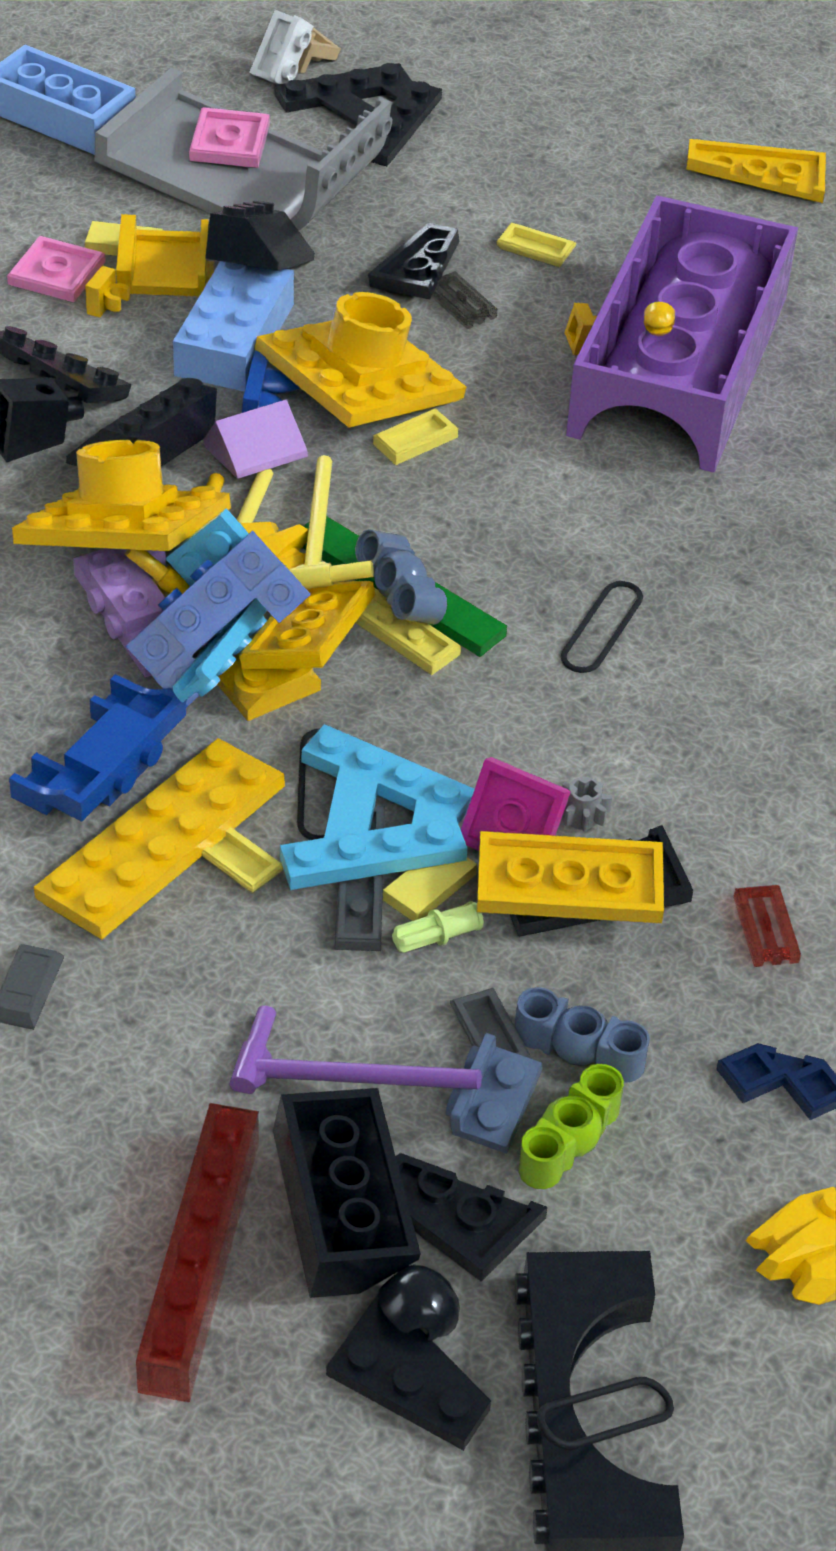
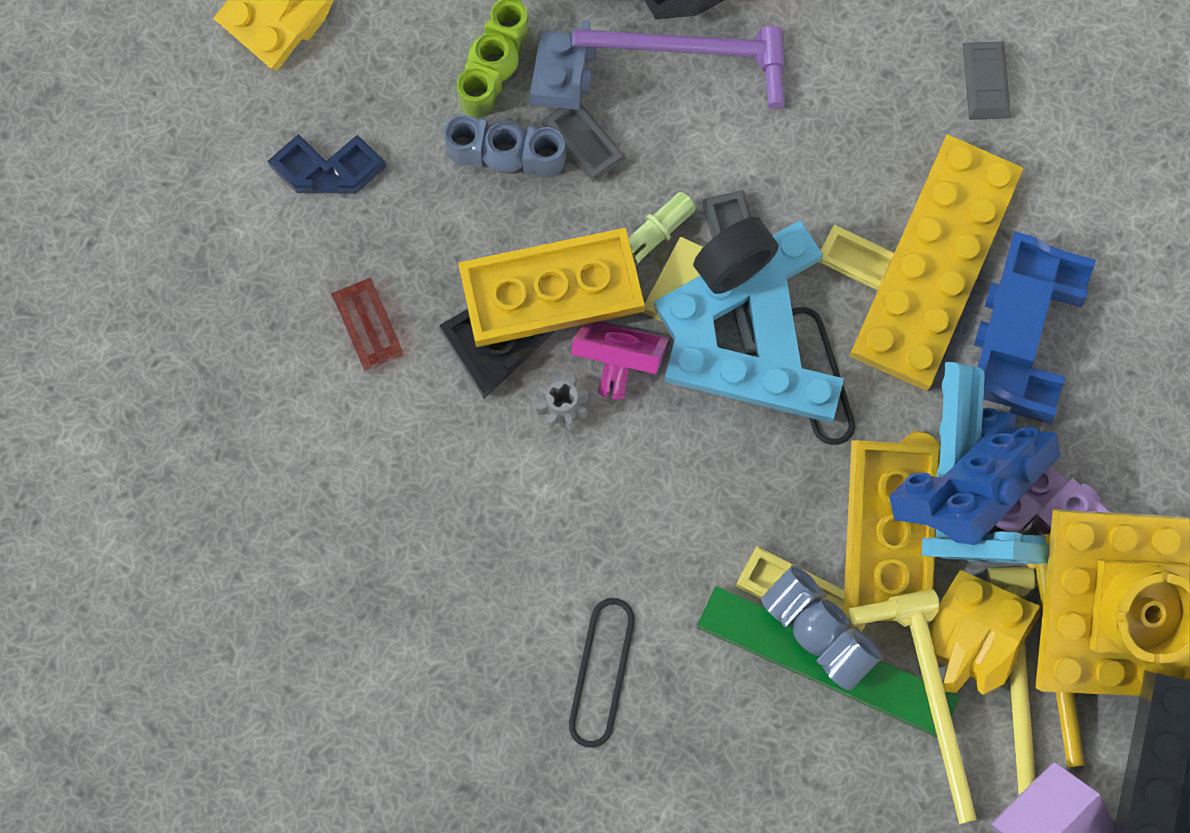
camera: 170 degrees right, 25 degrees up
(370, 796) = (735, 255): none -> black tyre

